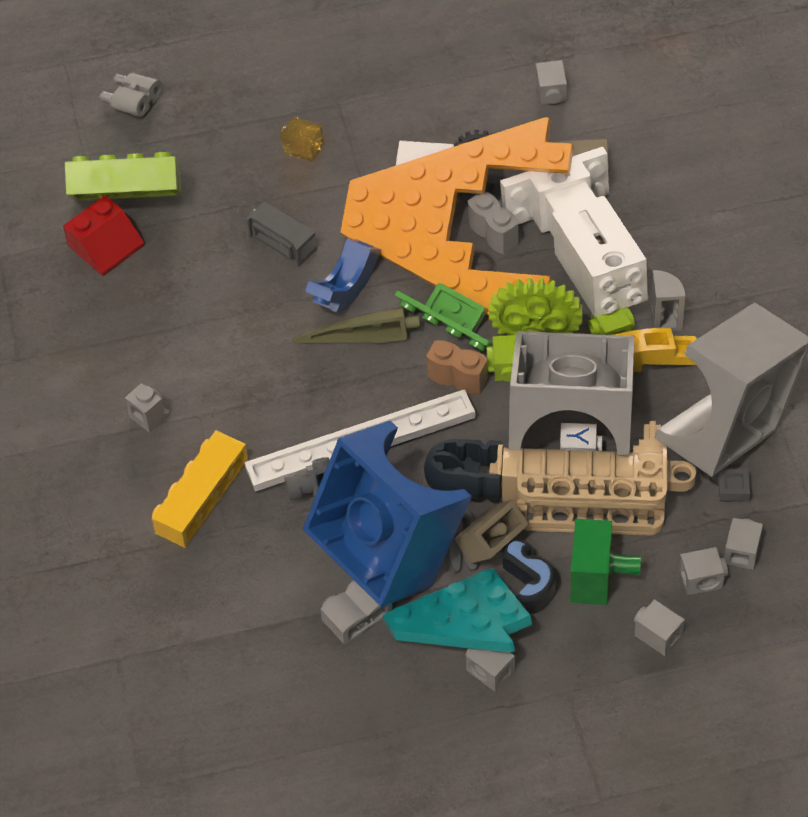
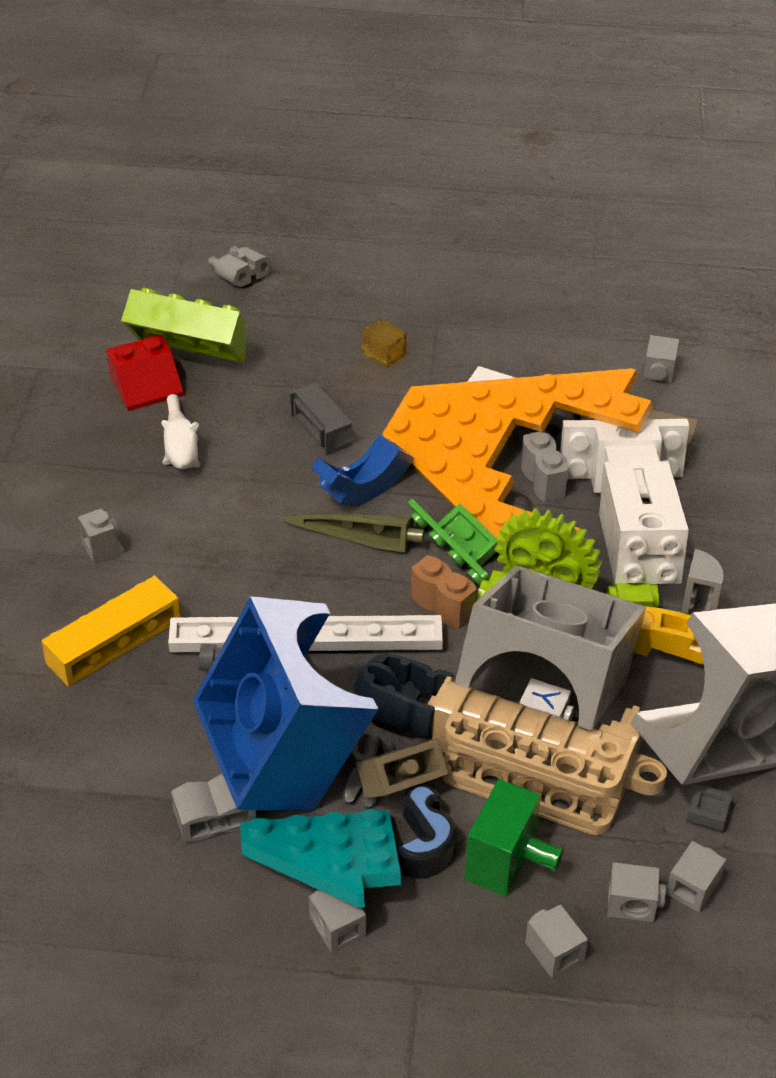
camera: 15 degrees right, 10 degrees down
(166, 290) = (179, 437): none -> white piece

